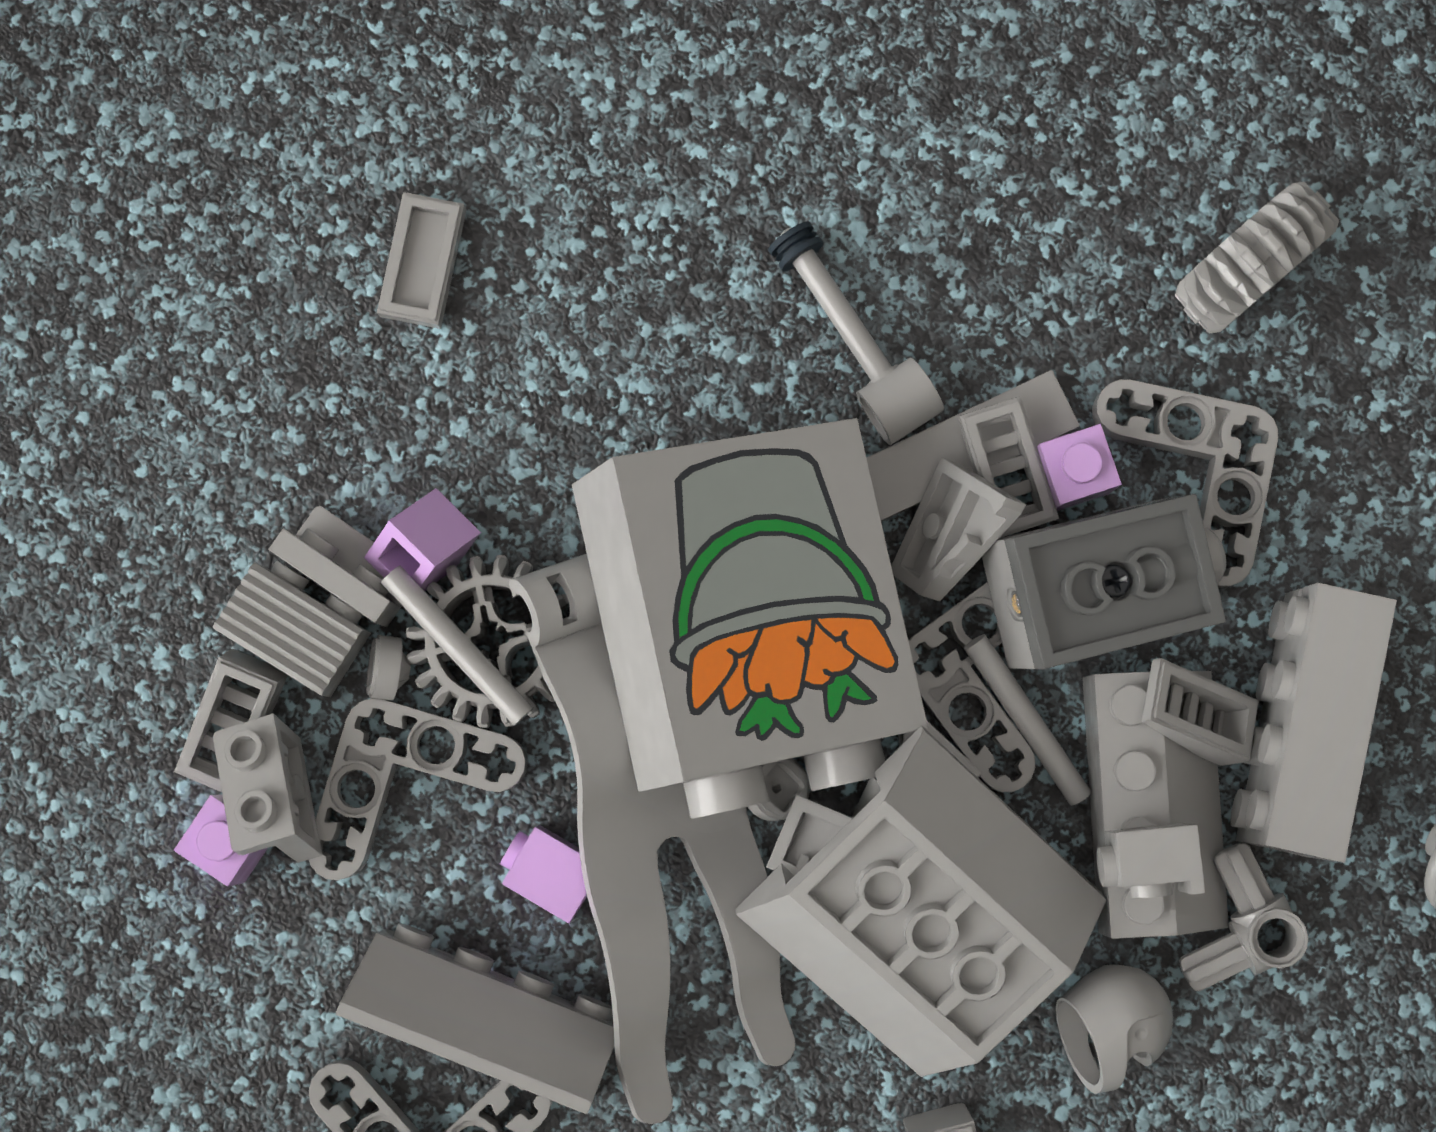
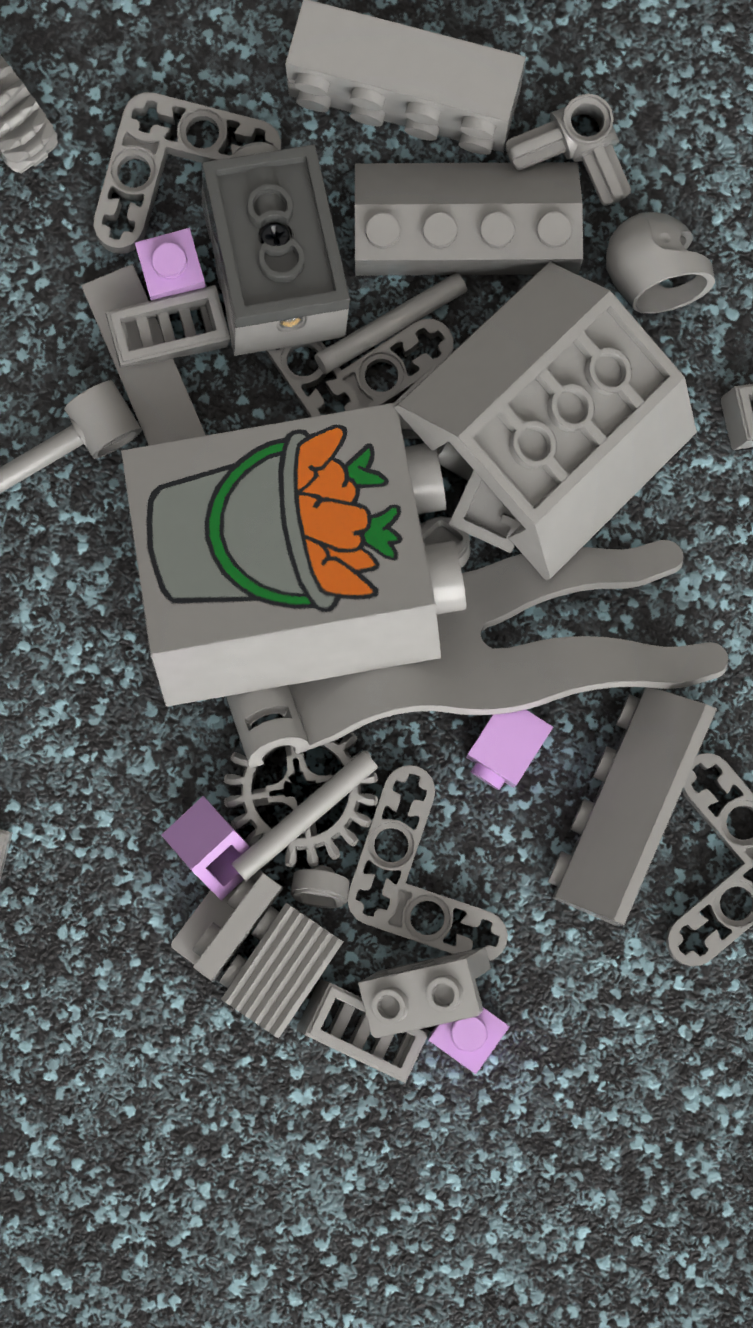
camera: 90 degrees left, 0 degrees up
(952, 529) = (220, 376): light grey wing -> none
(1152, 860) = (516, 217): light grey brick -> none
(1233, 714) = (395, 153): light grey slope -> none

